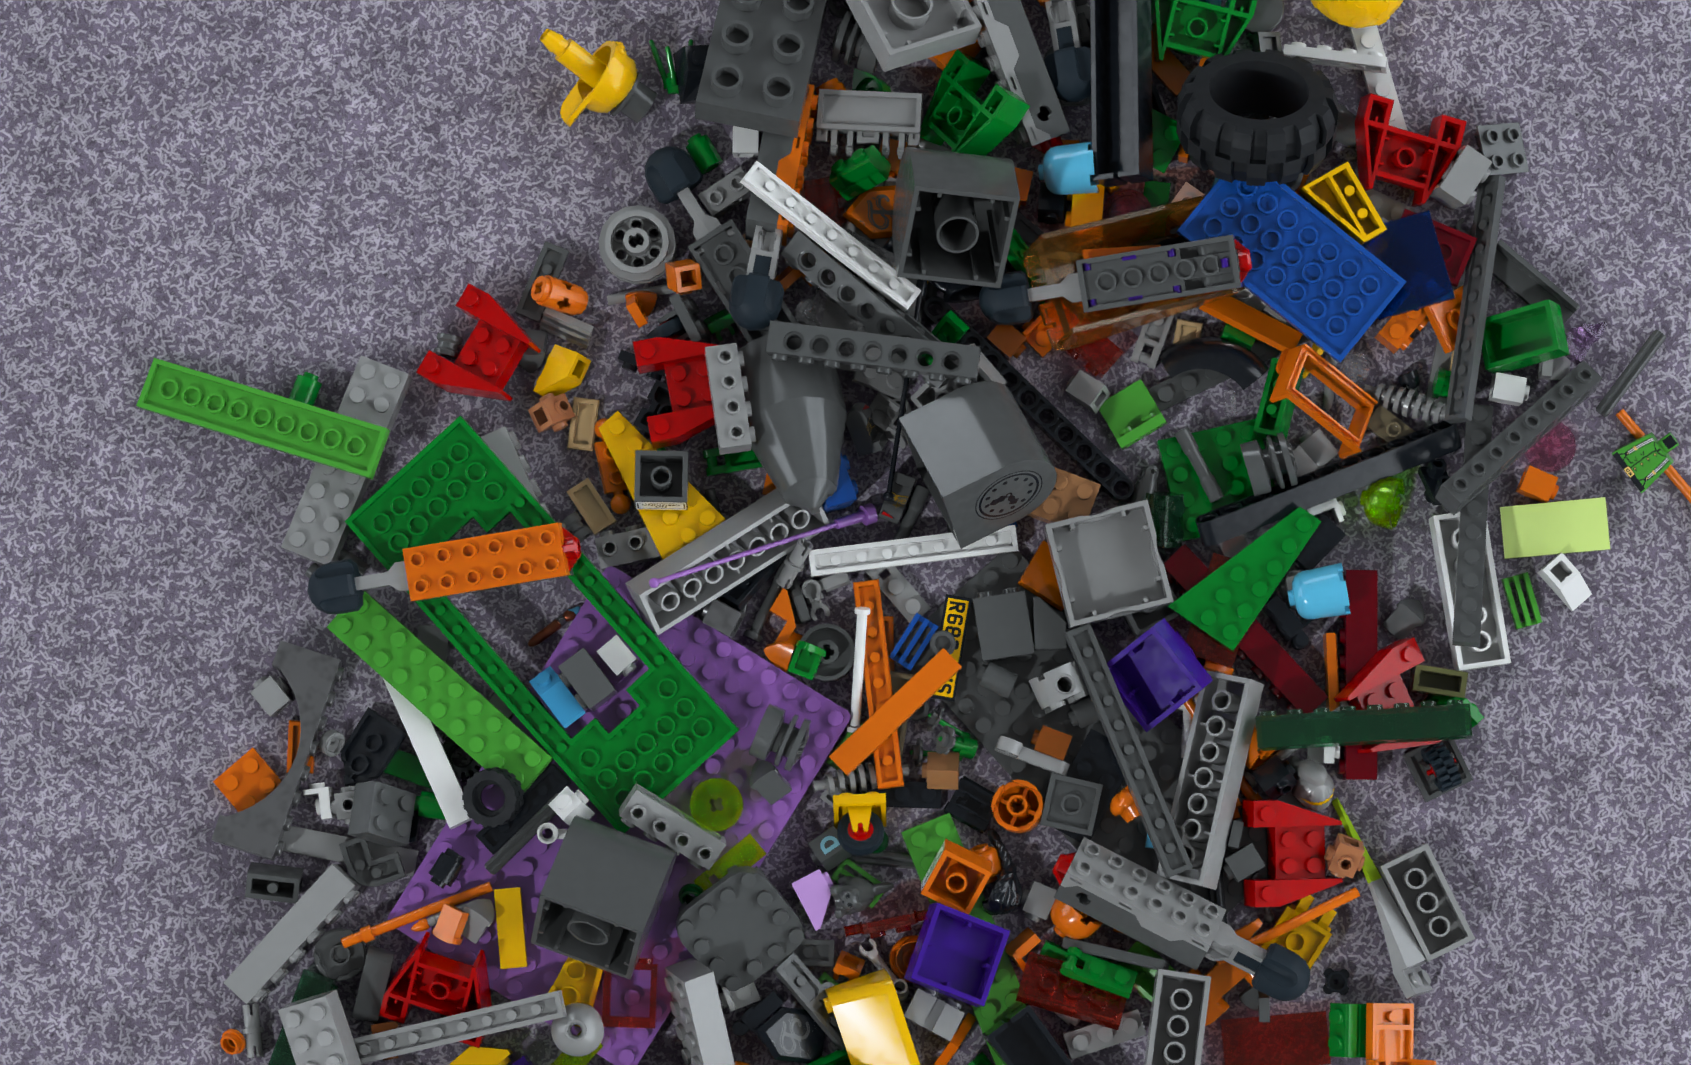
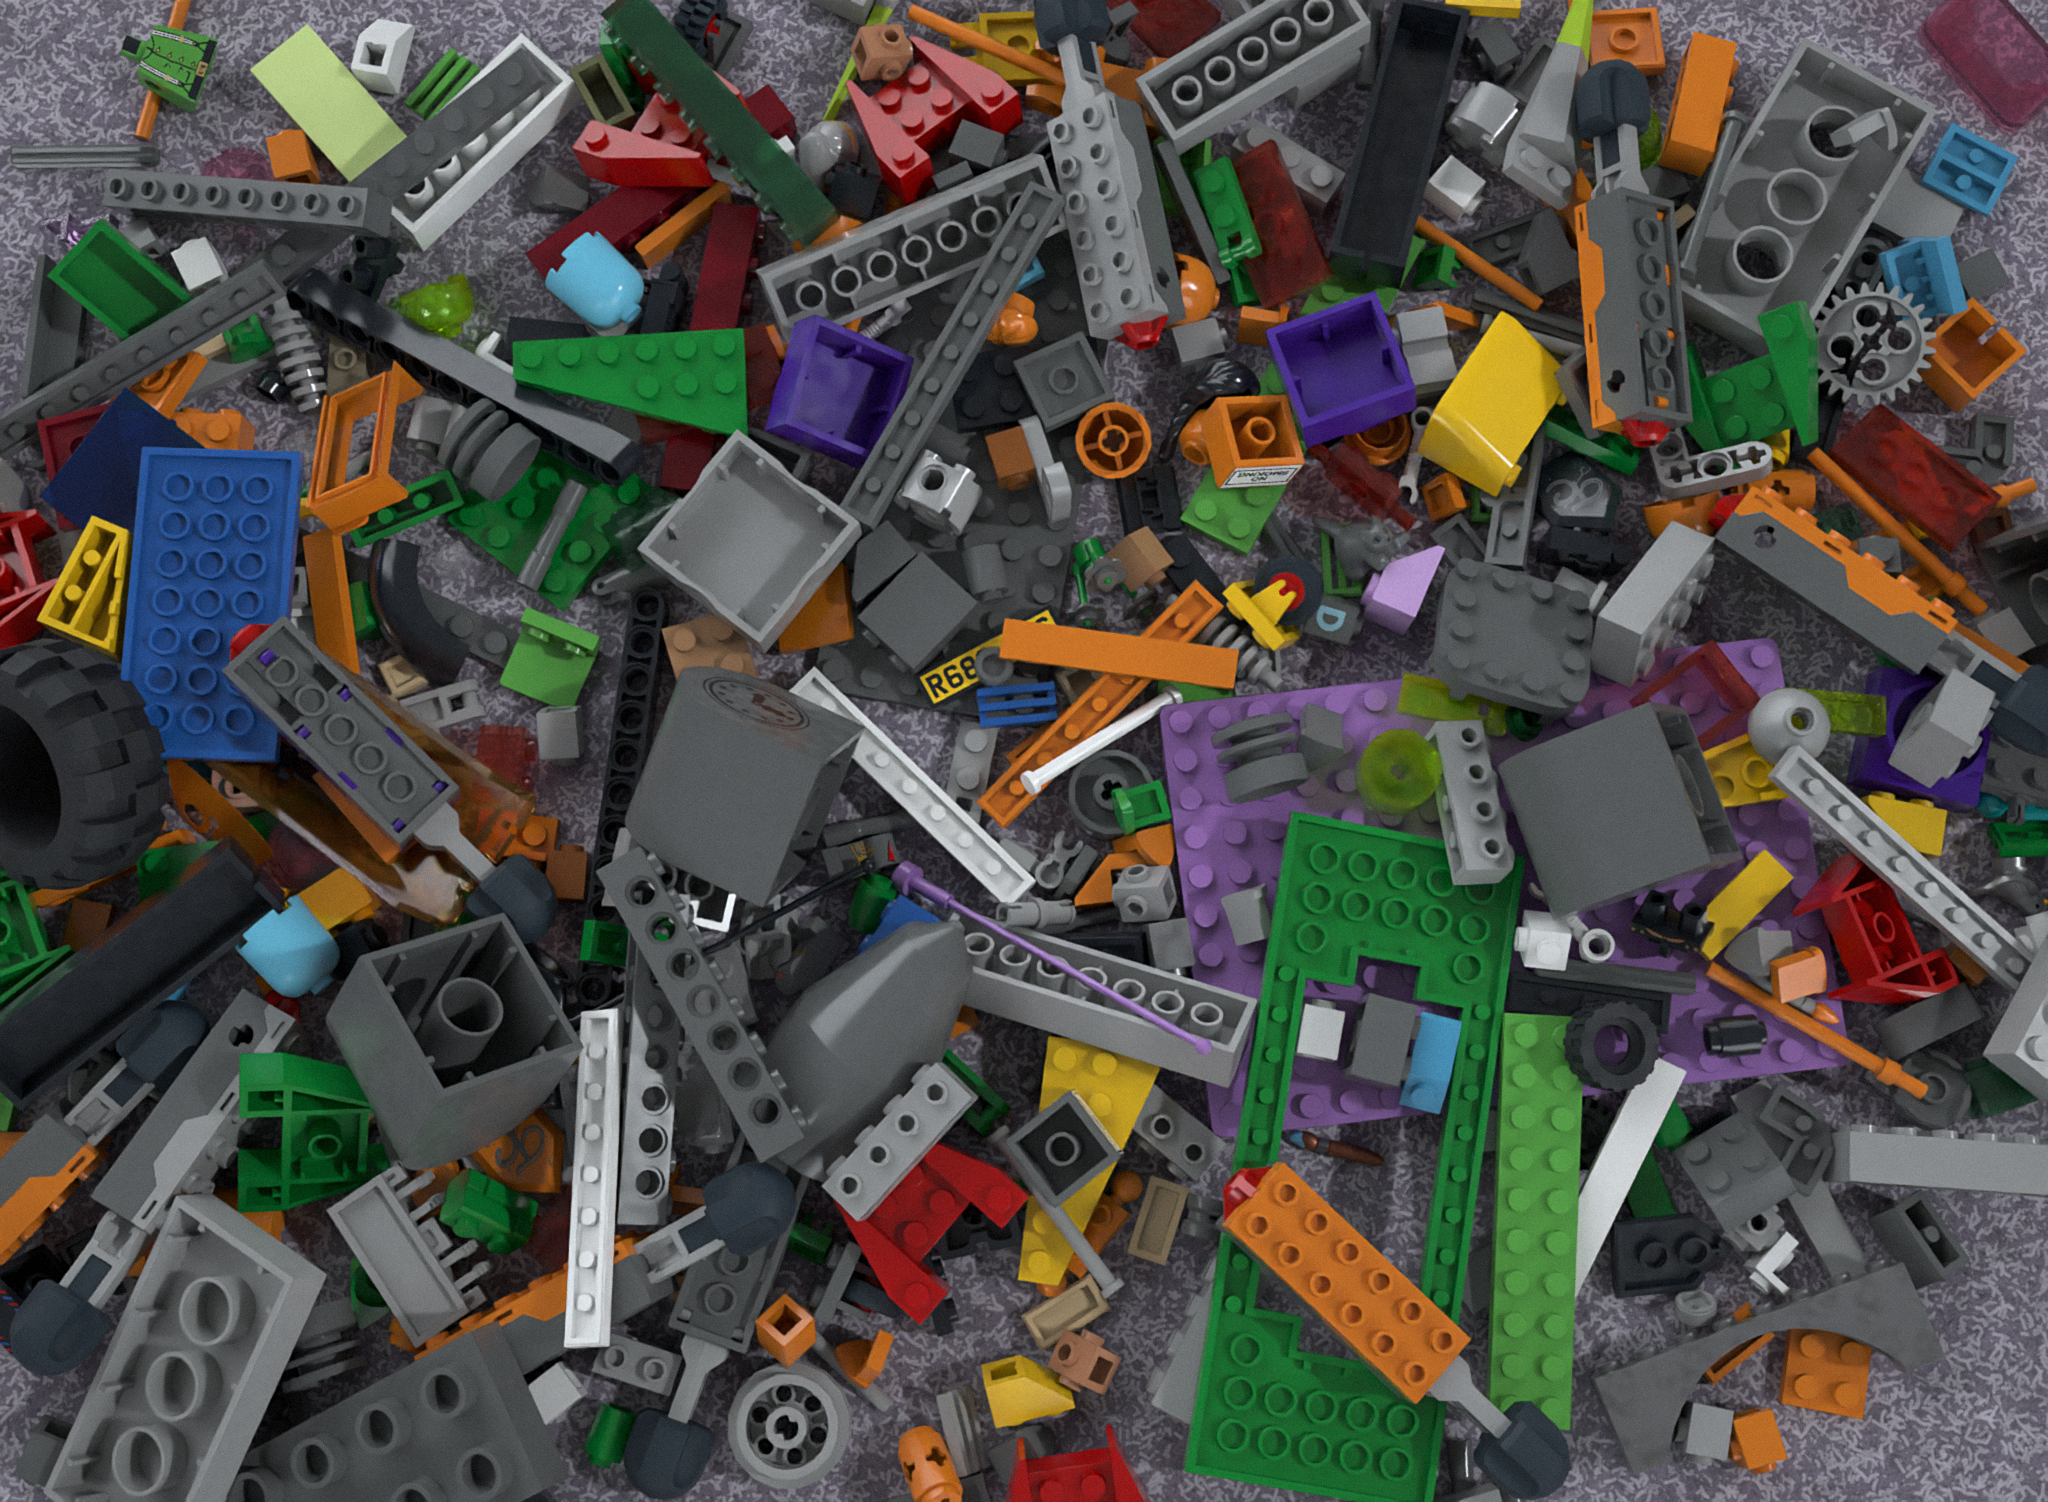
camera: 130 degrees left, 5 degrees down
(247, 717) = (1756, 1440): none -> orange brick
(525, 881) = (1672, 928): none -> black hips
(599, 452) = (1060, 1219): none -> light grey bar
(706, 669) = (1248, 914): none -> light grey tile
(759, 627) = (1145, 893): none -> light grey brick
(869, 484) = (869, 901): none -> green brick
(1171, 185) = (192, 789): none -> orange piece

